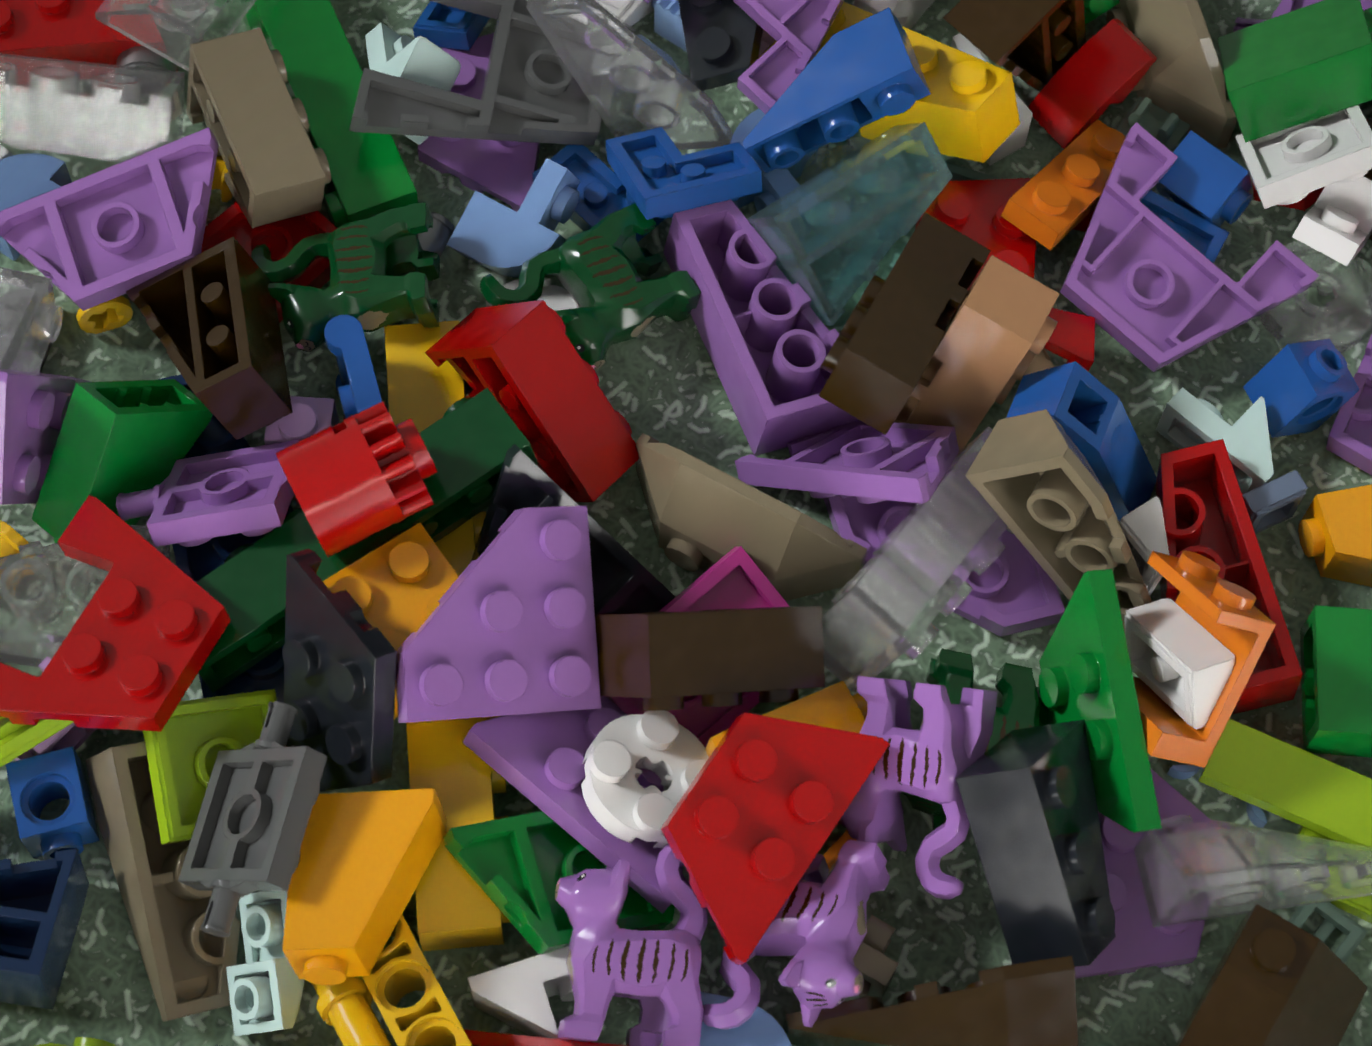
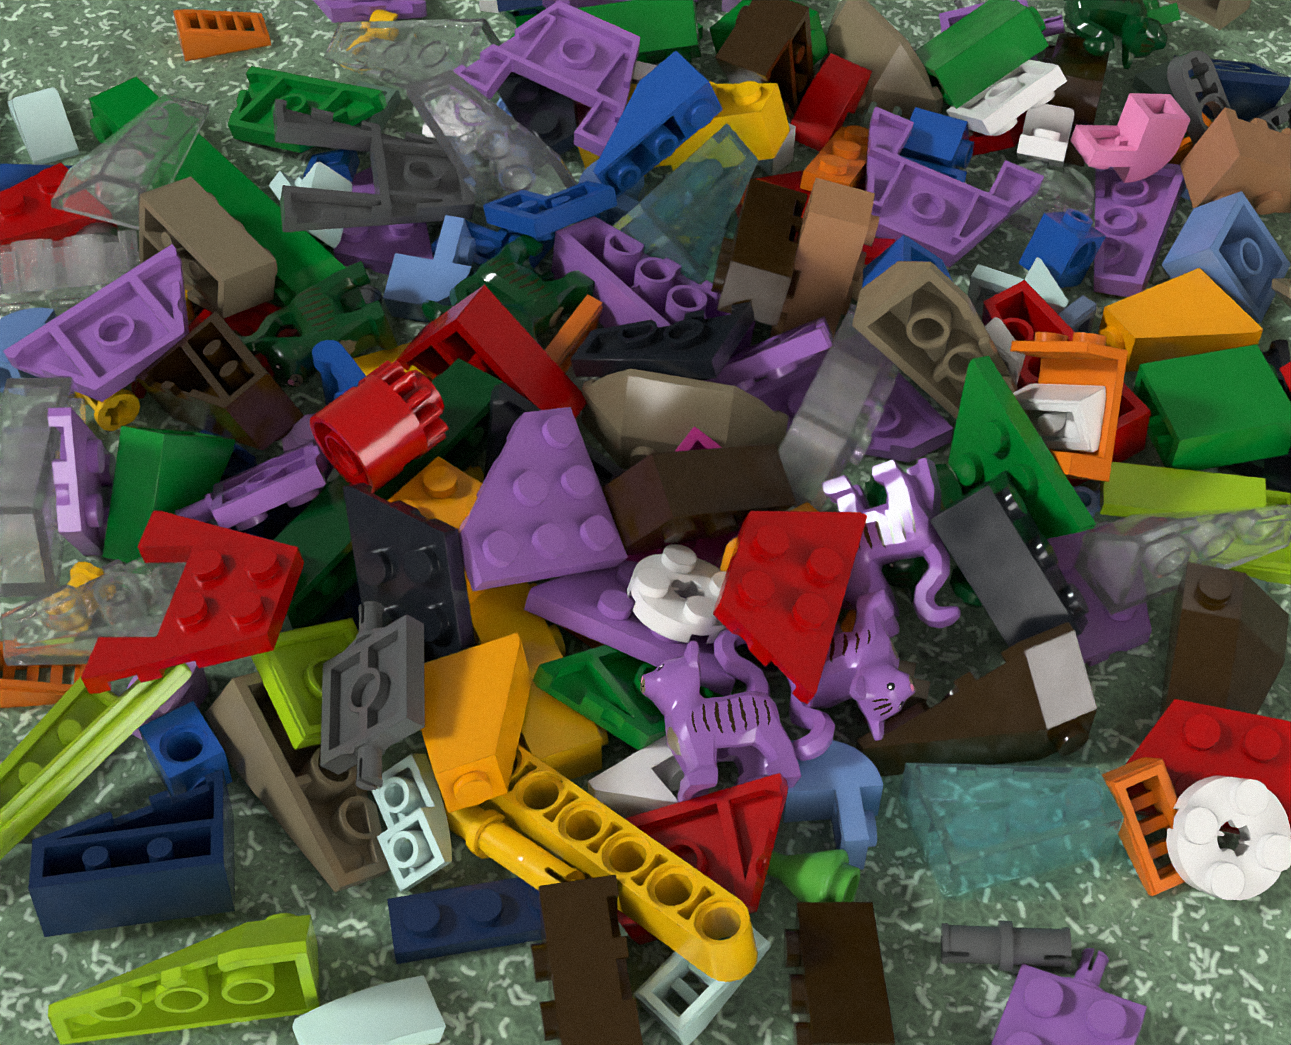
camera: 15 degrees left, 15 degrees down
(651, 359) = (574, 332): none -> orange tile
(743, 433) = (686, 349): none -> black wing

